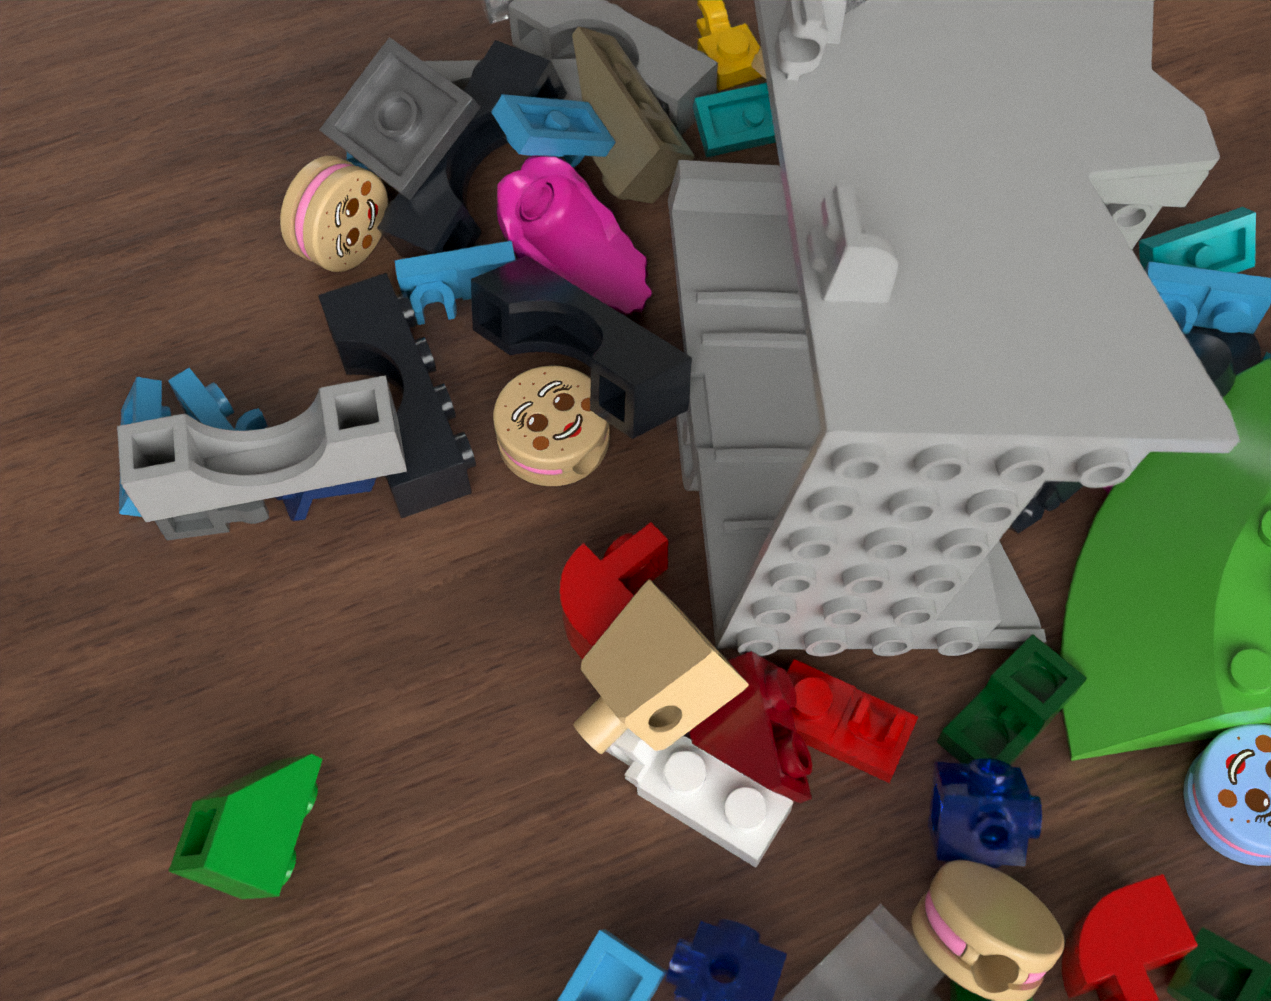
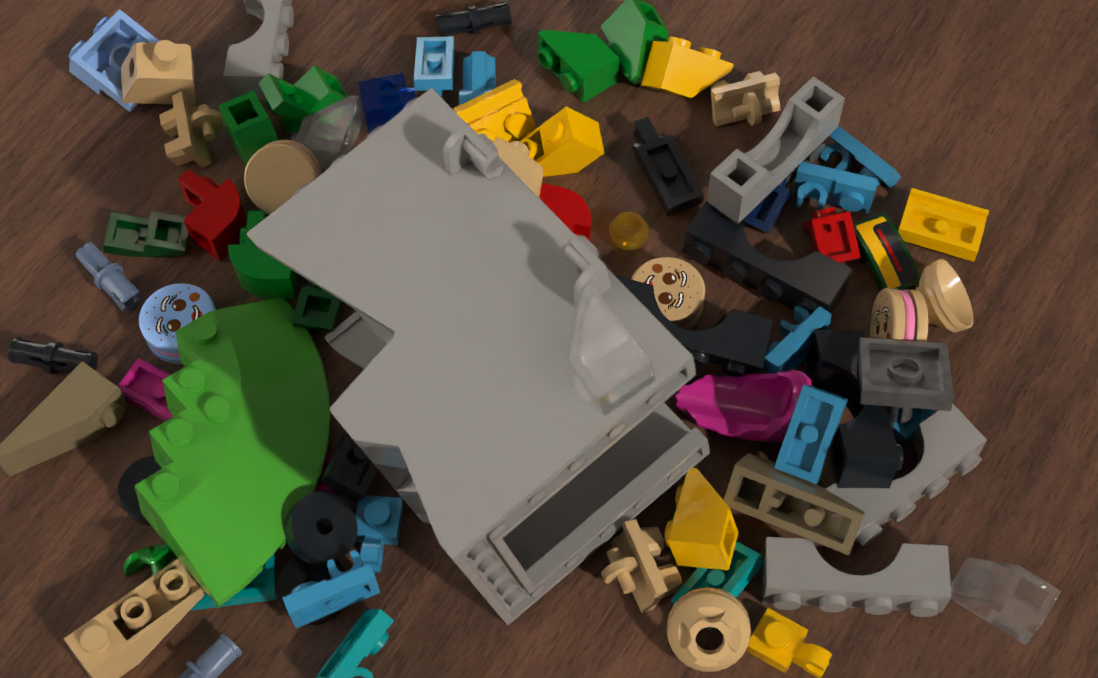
camera: 145 degrees right, 0 degrees up
(149, 315) = (943, 224): none -> yellow plate
(219, 645) = (745, 99): none -> tan hips
(235, 720) = (681, 70): none -> yellow slope
(247, 325) = (885, 253): none -> slope
(251, 226) = (945, 297): none -> tan piece
(283, 375) = (833, 234): none -> red bracket
(361, 858) = (579, 61): none -> green slope
(396, 603) = (665, 169): none -> black hinge
(515, 724) = (565, 143): none -> yellow slope
(522, 546) = (628, 231): none -> clear yellow plate
(566, 901) = (478, 75): none -> dark azure piece
(603, 826) = (499, 113): none -> yellow plate
(737, 133) = (702, 526): none -> yellow slope
(1096, 807) = (258, 271): none -> green brick

